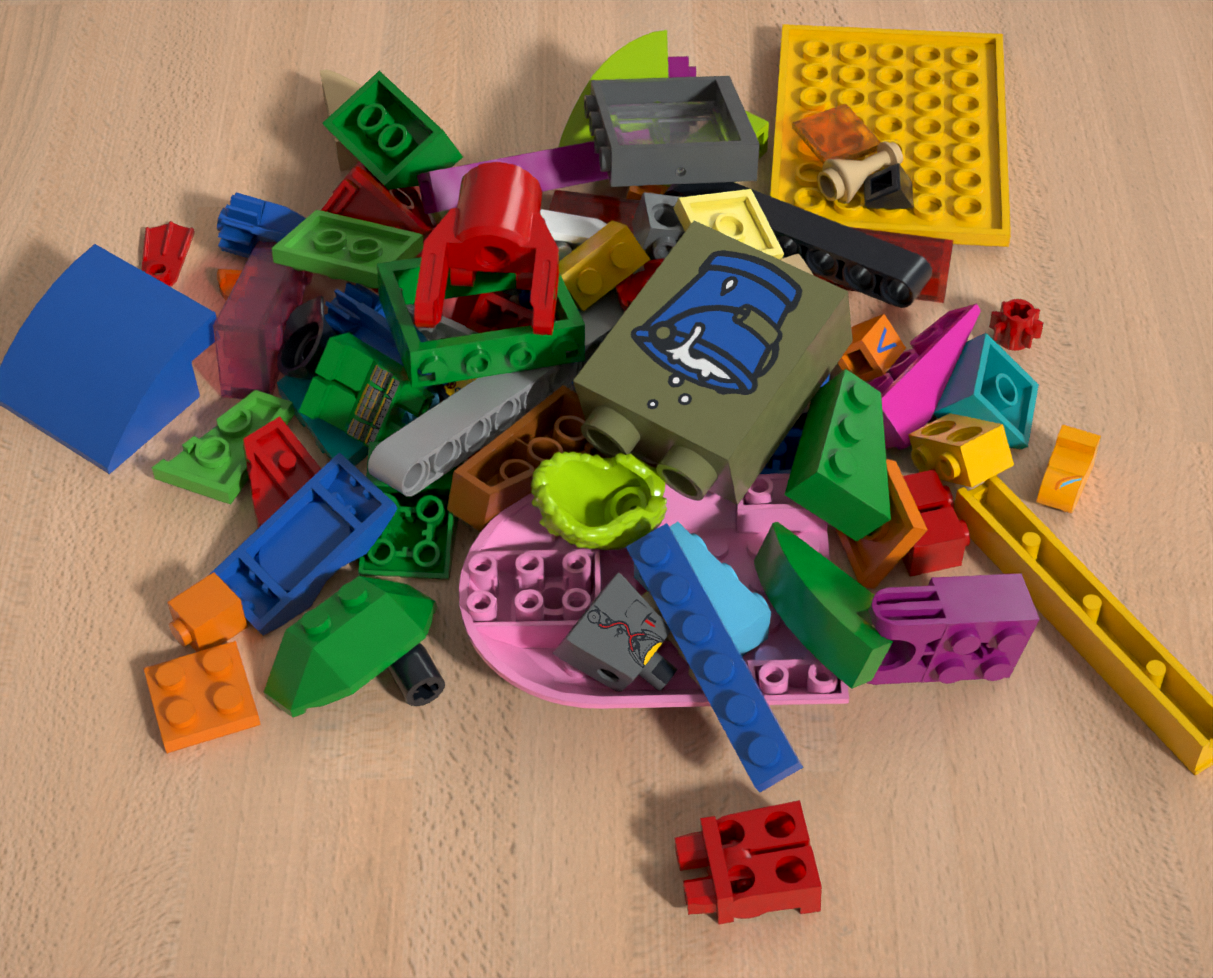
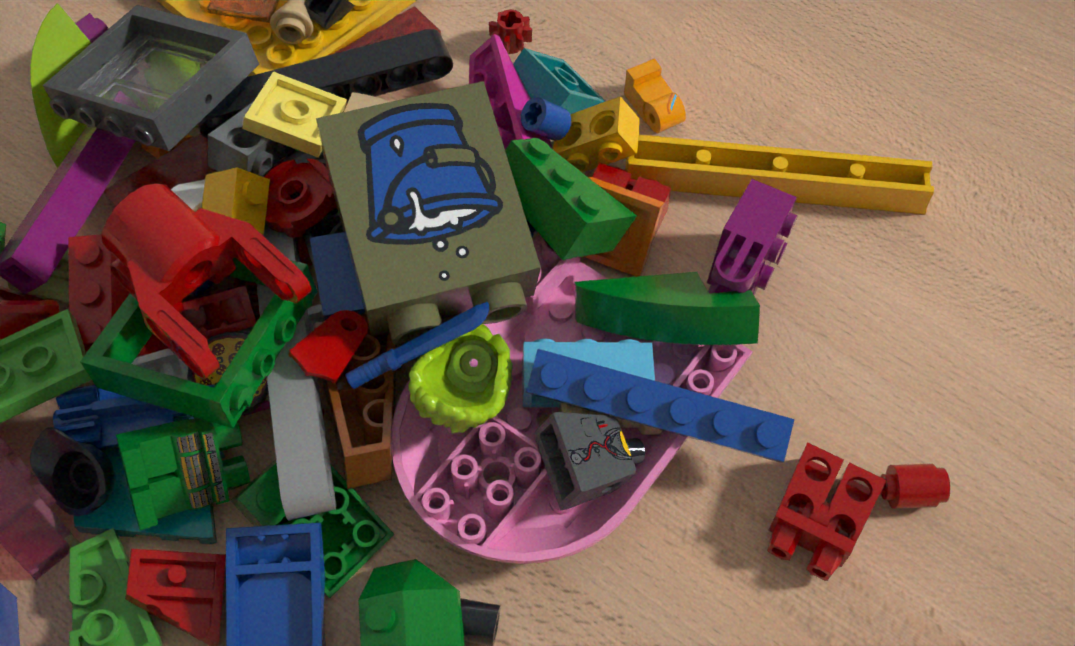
camera: 55 degrees left, 10 degrees up
(538, 399) = (330, 346): none -> red piece
(568, 442) = (420, 345): none -> blue piece
(850, 926) = (915, 486): none -> red brick
(928, 397) = (545, 118): none -> blue gear

